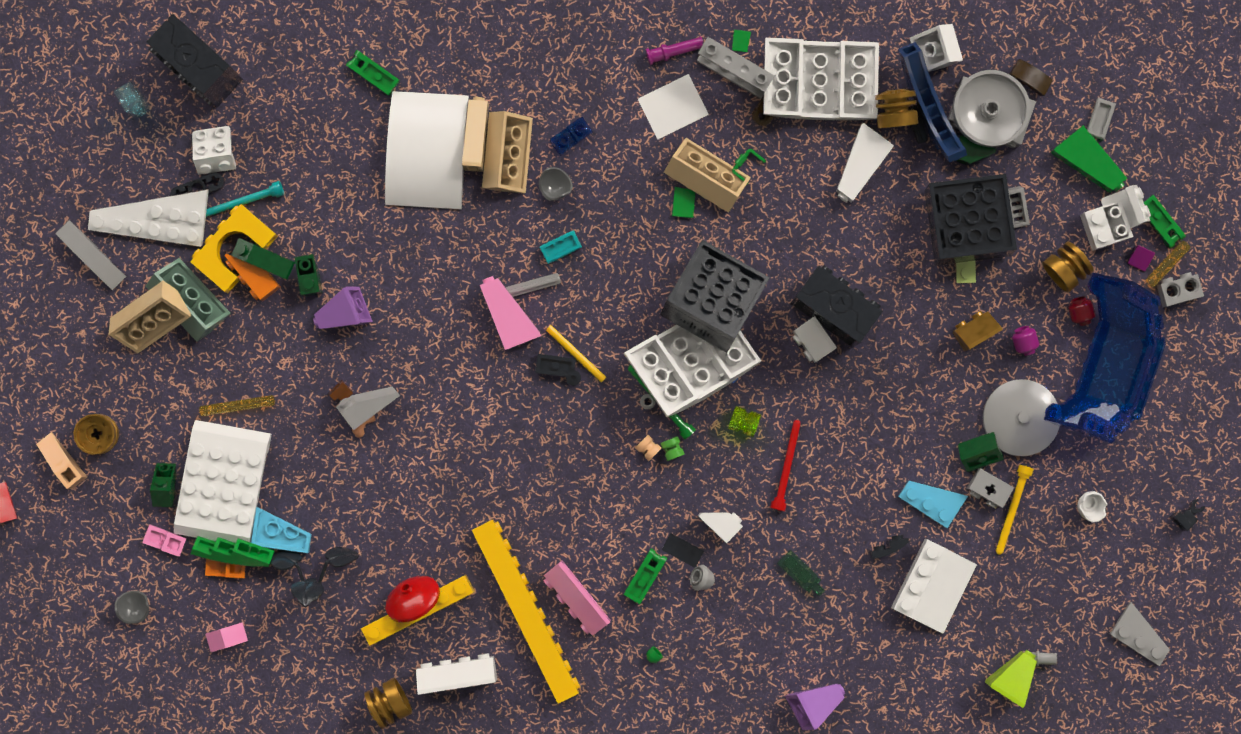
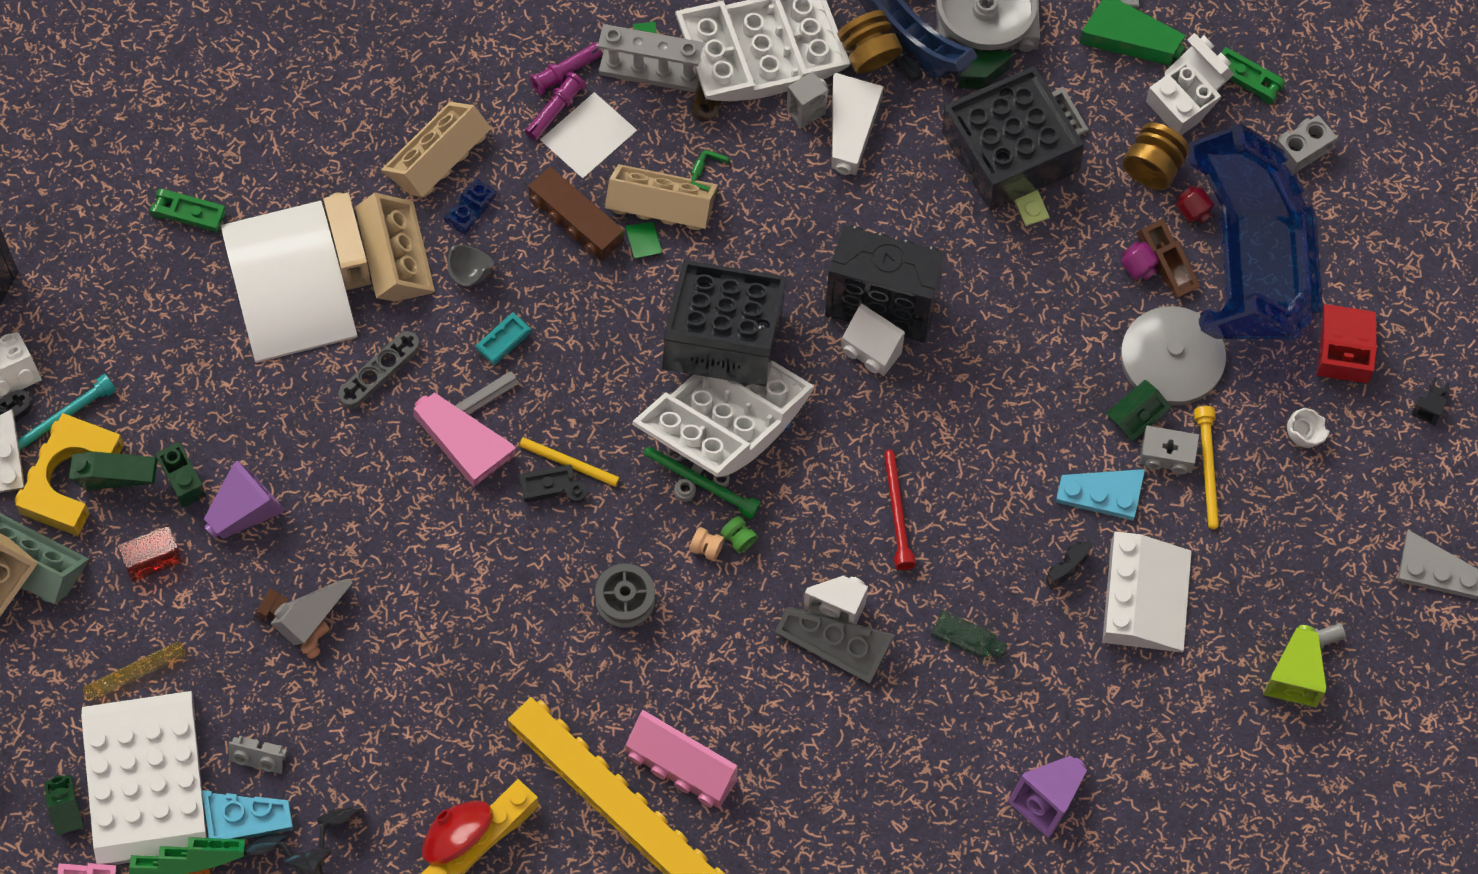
camera: 25 degrees left, 20 degrees down
(259, 280) = (112, 500): orange slope -> none
(271, 325) = (150, 553): none -> clear red hinge
(294, 489) = (246, 752): none -> light grey hinge
(469, 243) = (375, 367): none -> dark grey beam
(561, 84) = (437, 148): none -> tan slope
(576, 478) = (630, 609): none -> dark grey wheel
(642, 168) = (575, 213): none -> reddish brown brick
(645, 577) = (762, 708): green plate -> none
(654, 655) = (811, 805): green hinge -> none
(664, 73) = (561, 98): none -> magenta pin
(682, 550) = (798, 661): black sticker -> none
(701, 578) = (839, 682): light grey cone -> none
(712, 550) = (837, 641): none -> dark grey wing
(744, 421) = (811, 469): clear neon green wheel -> none
(836, 137) = (807, 99): none -> light grey brick
(977, 330) = (1074, 267): pearl gold slope -> none
(1048, 344) = (1173, 263): none -> reddish brown slope
(1141, 258) = (1242, 115): magenta slope -> none
(1147, 451) = (1347, 344): none -> red slope
(1167, 264) = (1280, 115): clear yellow axle -> none

